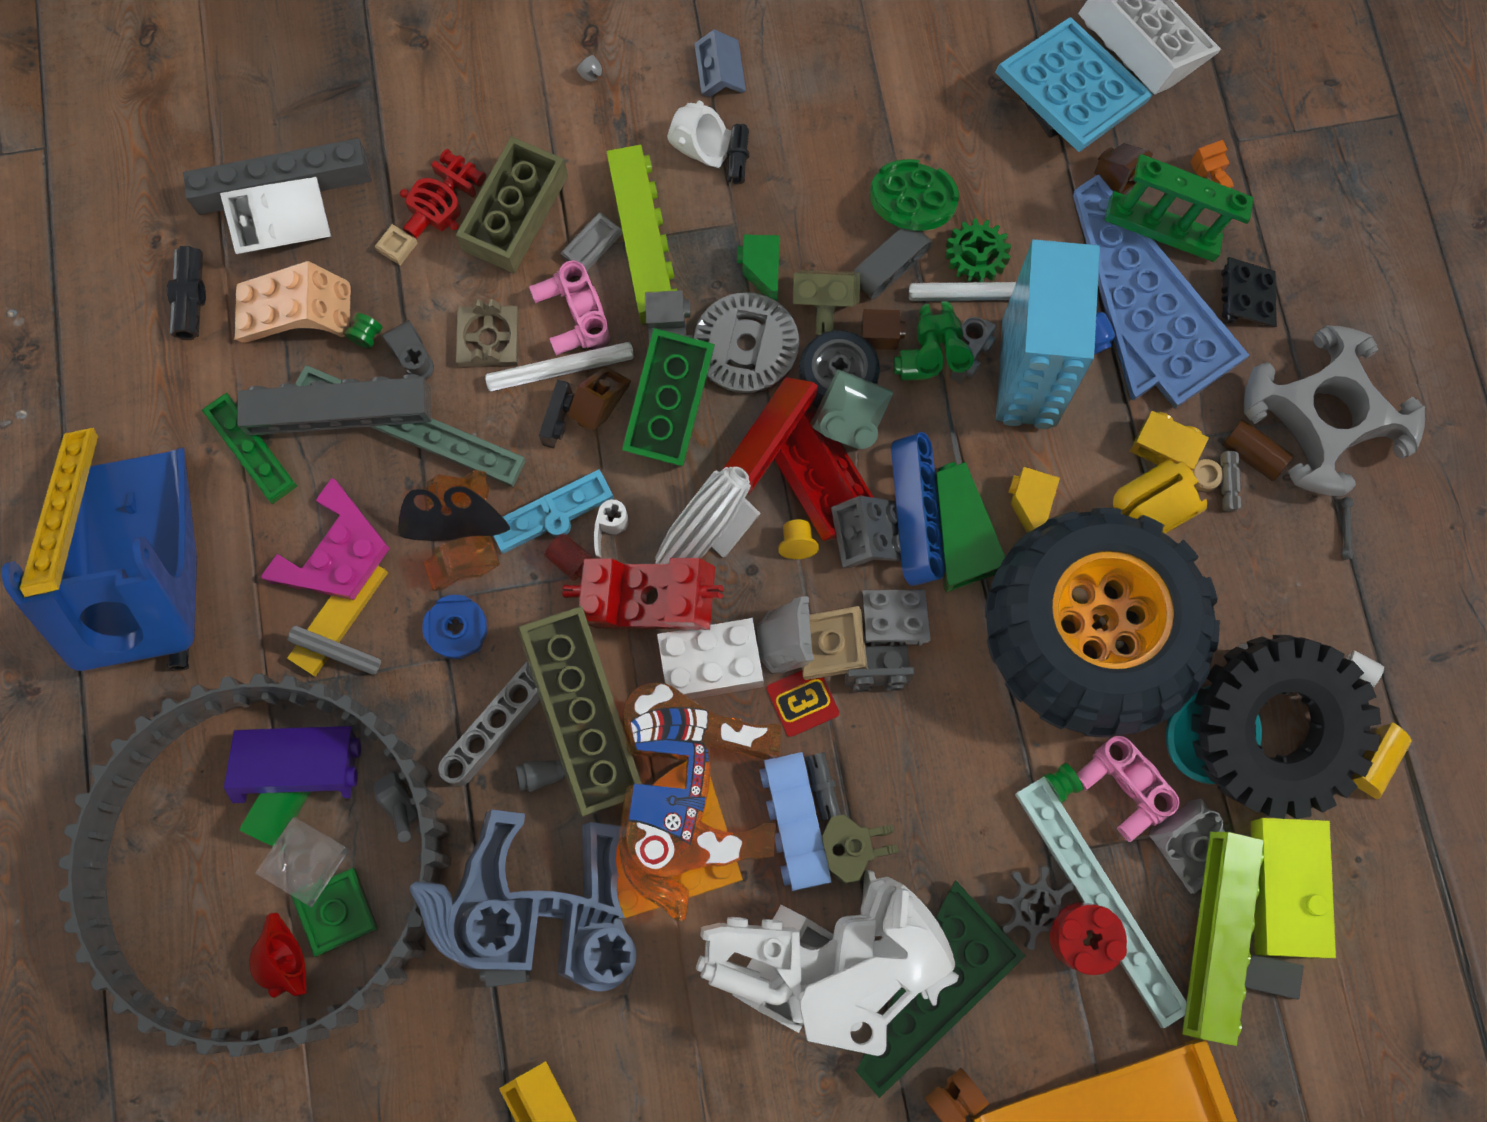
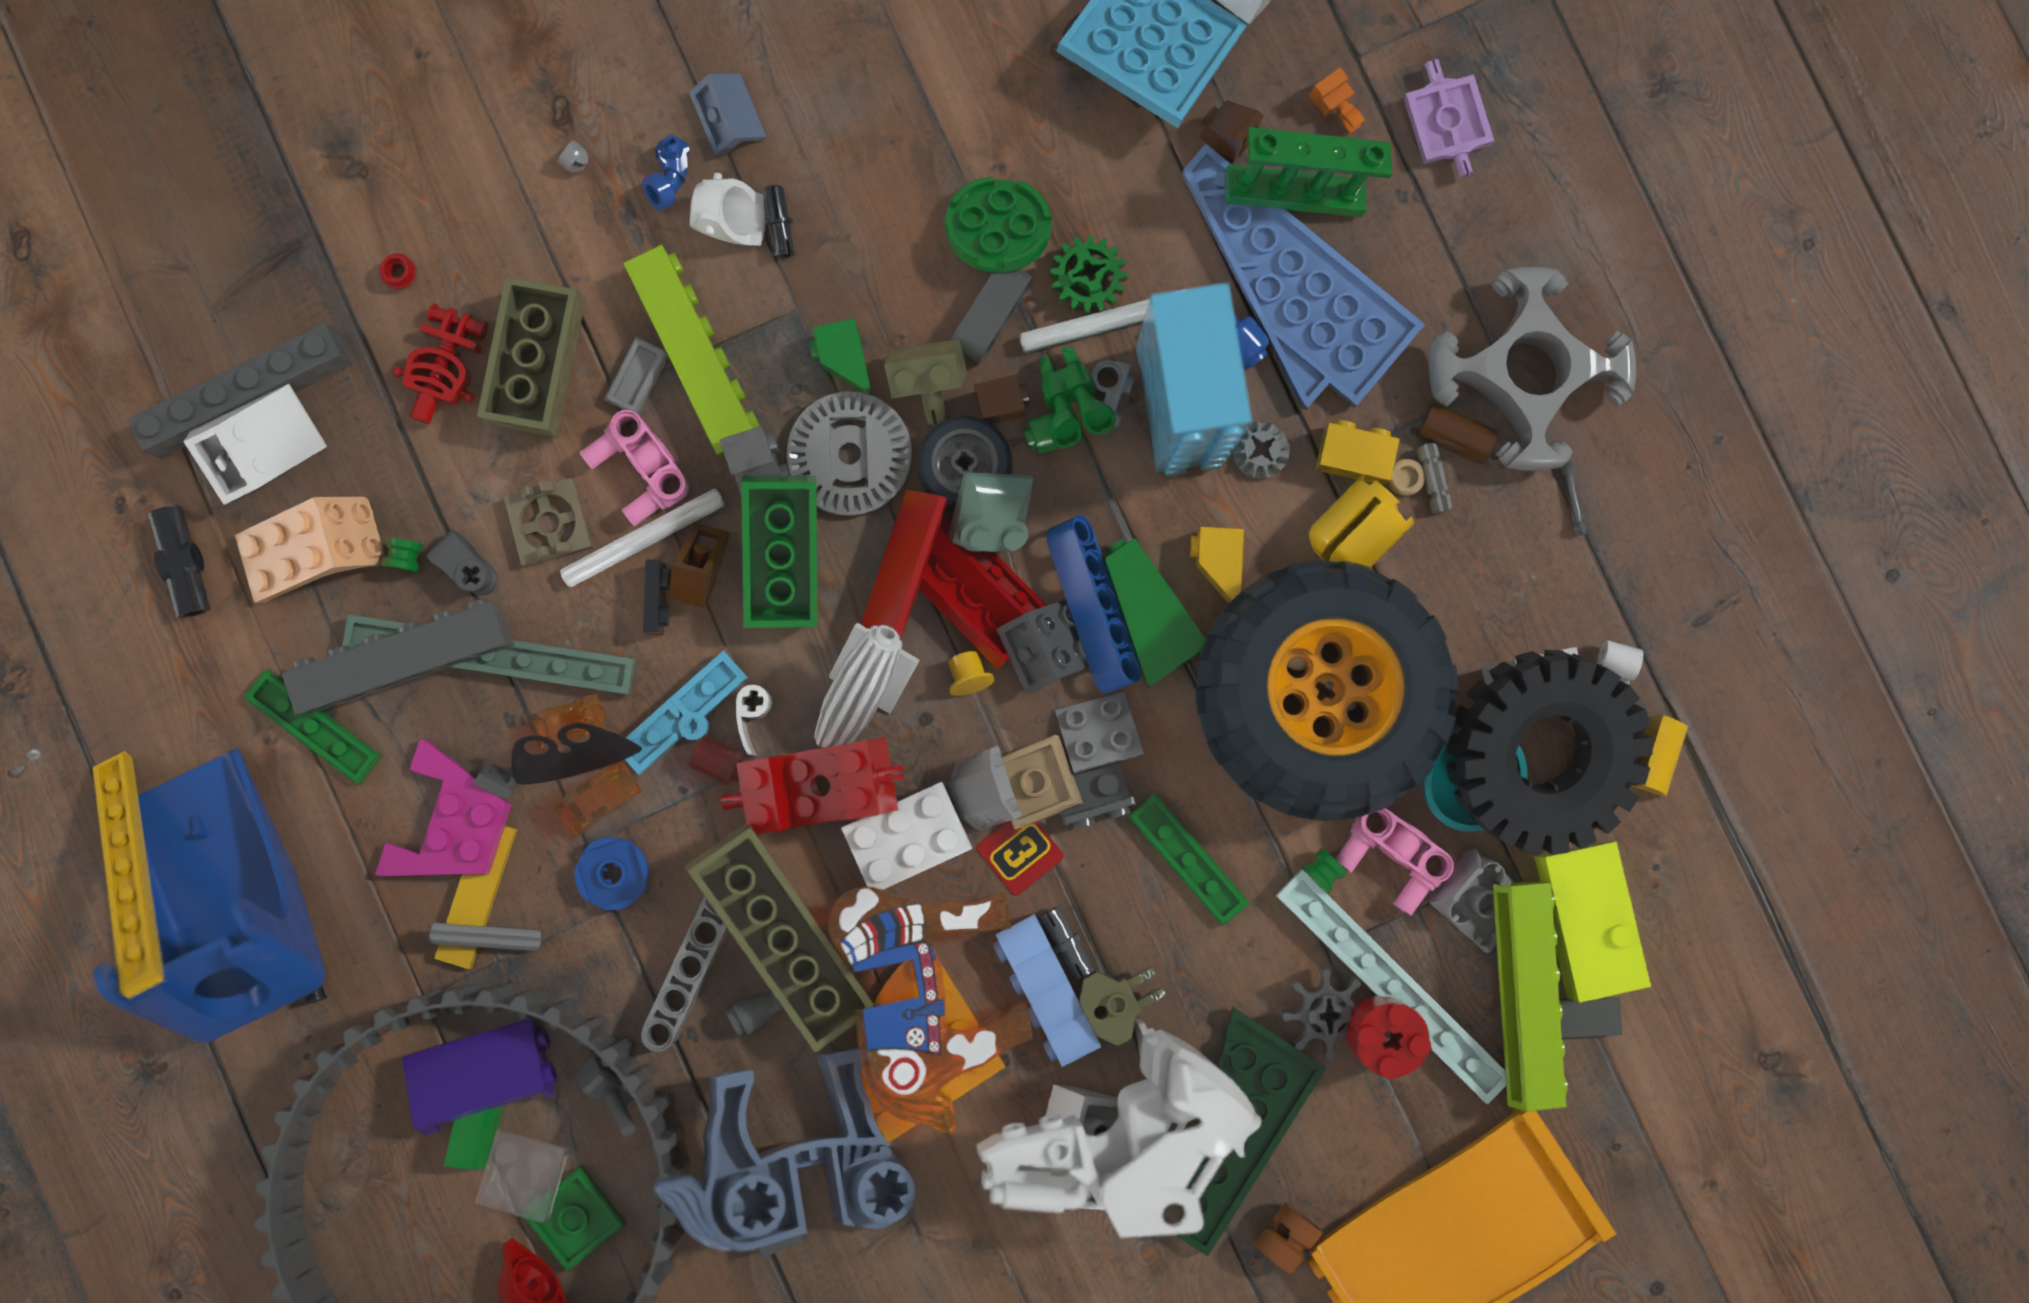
camera: 20 degrees left, 10 degrees up
(382, 525) = (495, 780): none -> dark grey tile
(396, 244) = (407, 437): tan tile -> none
(424, 113) = (393, 262): none -> red plate
(667, 87) = (672, 159): none -> blue arm
(946, 744) = (1188, 859): none -> green tile
(1085, 435) = (1259, 466): none -> light grey gear
(1248, 293) = (1410, 246): black hinge -> none
(1302, 203) = (1448, 119): none -> lavender plate

